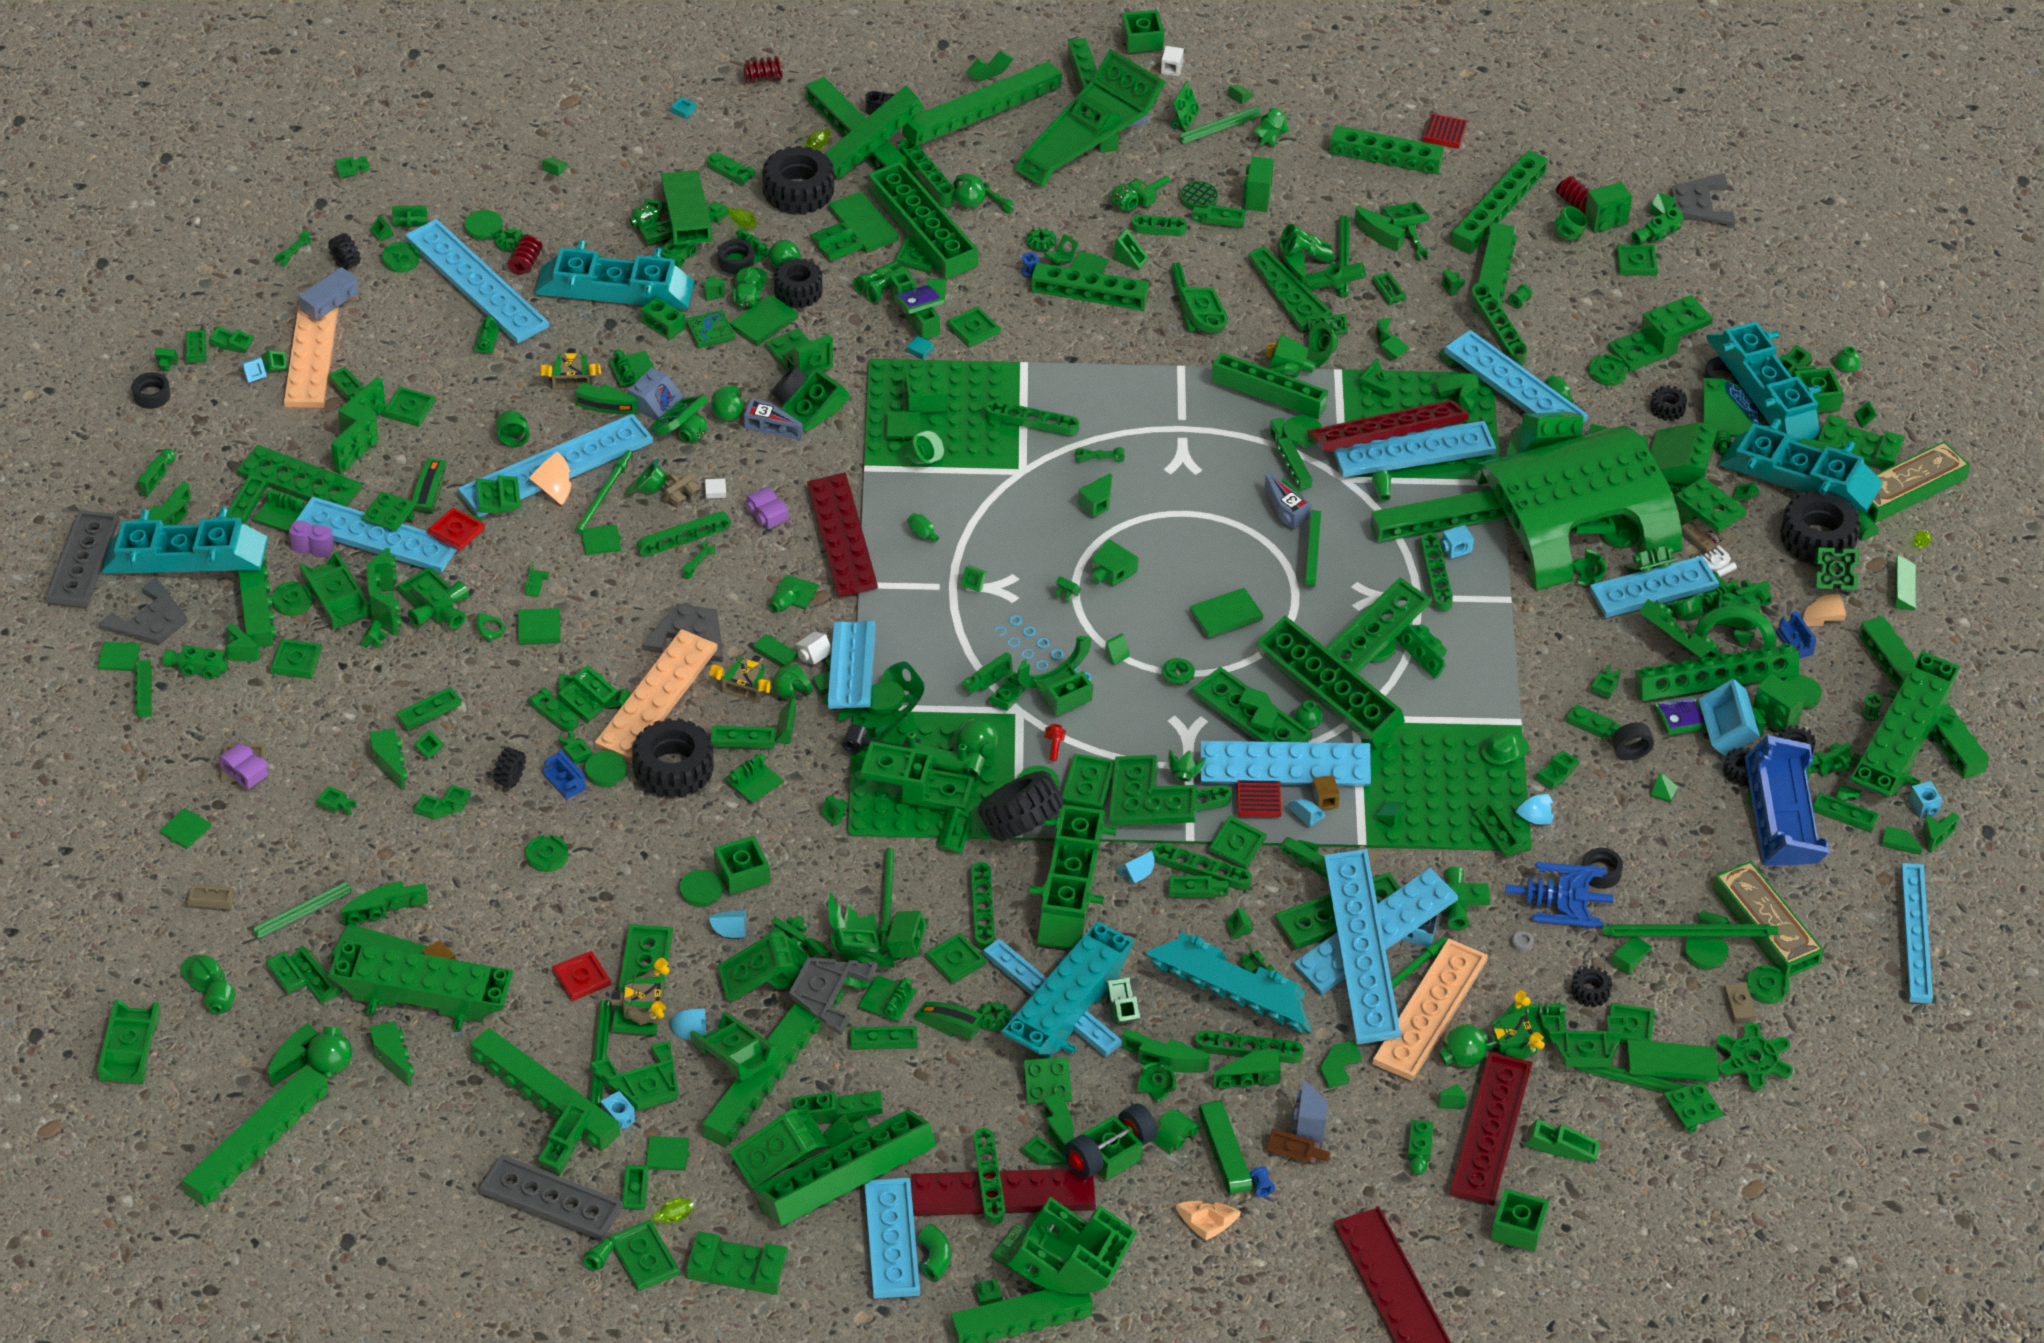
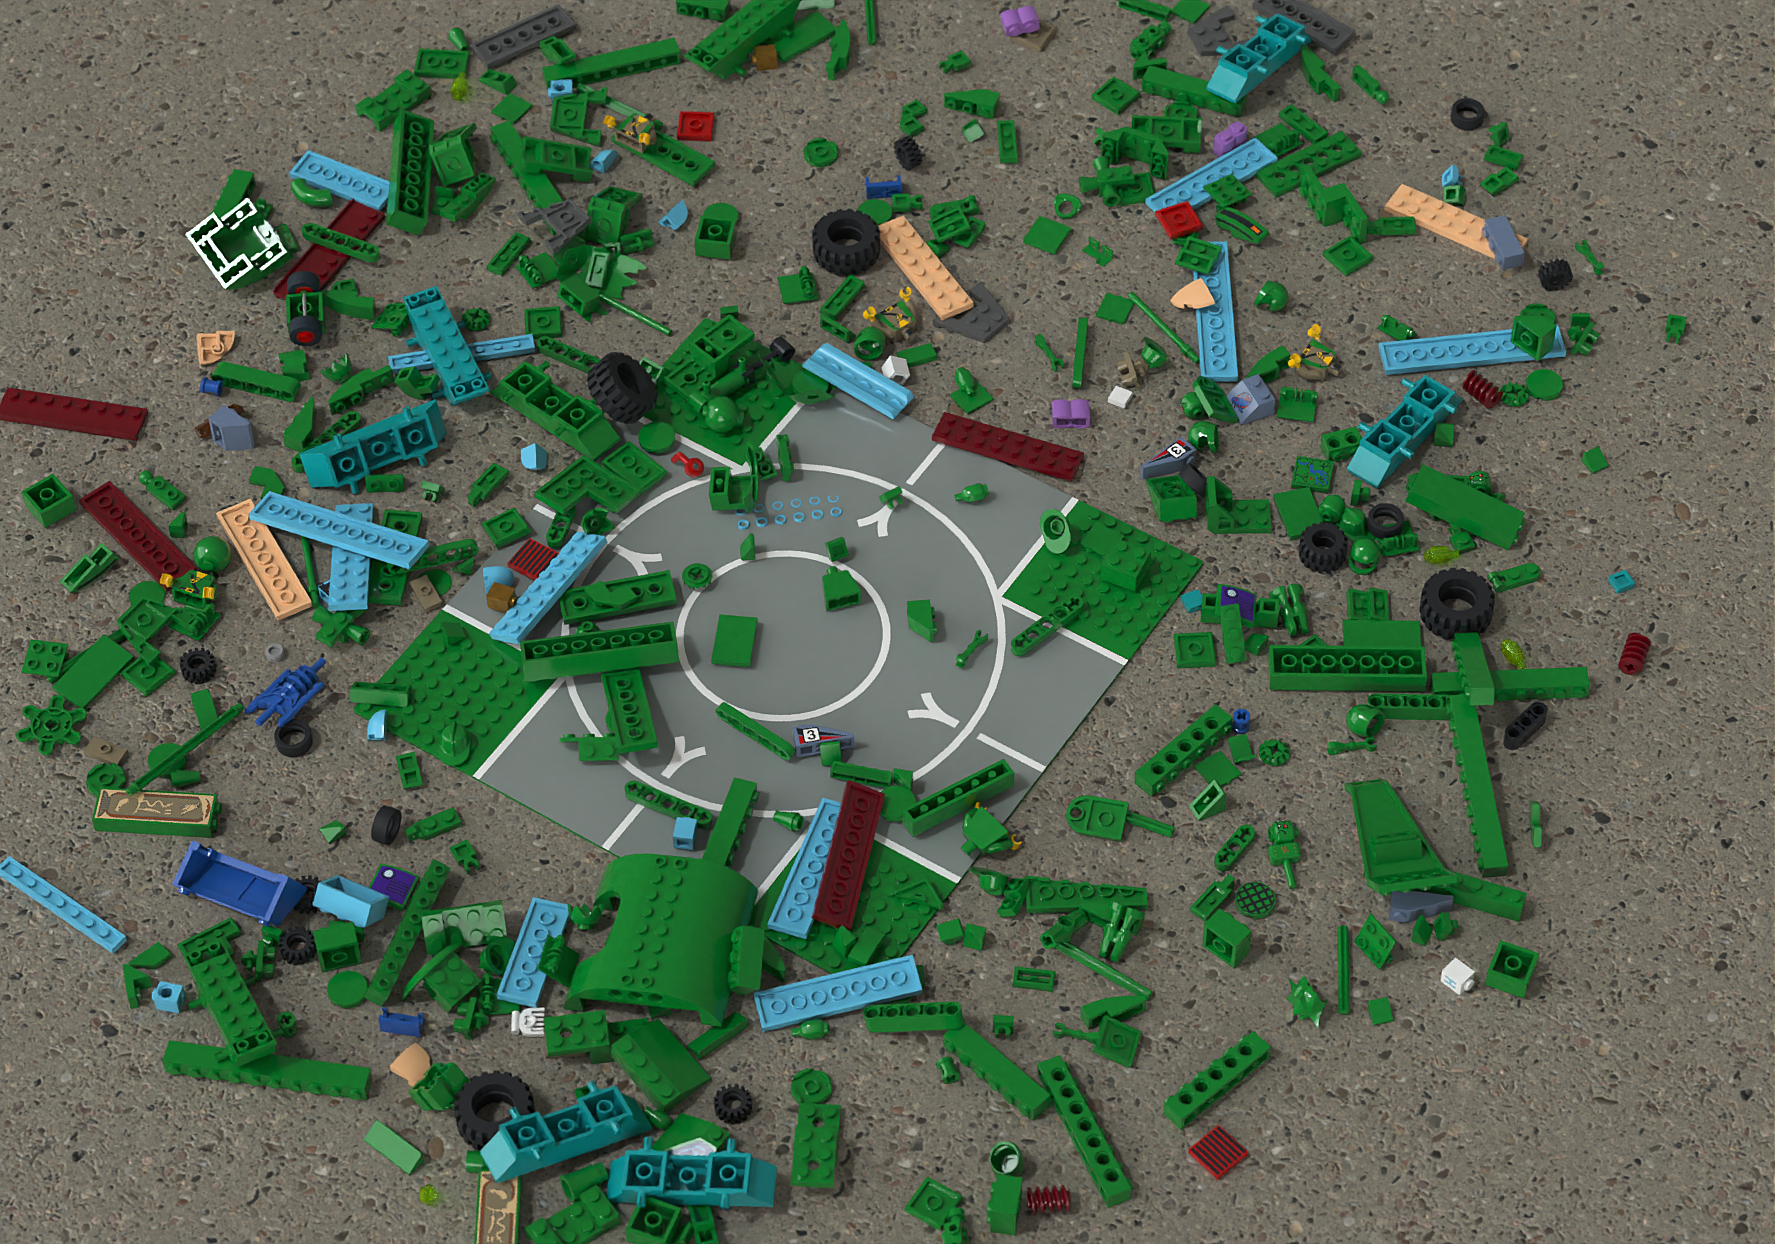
camera: 125 degrees right, 5 degrees up
(446, 224) = (1533, 335): none -> green slope
(949, 291) = (1232, 633): none -> green plate
(950, 1019) = (489, 289): green slope -> none
(1194, 859) = (500, 506): green beam -> none
(1546, 1085) = (147, 589): none -> green sticker

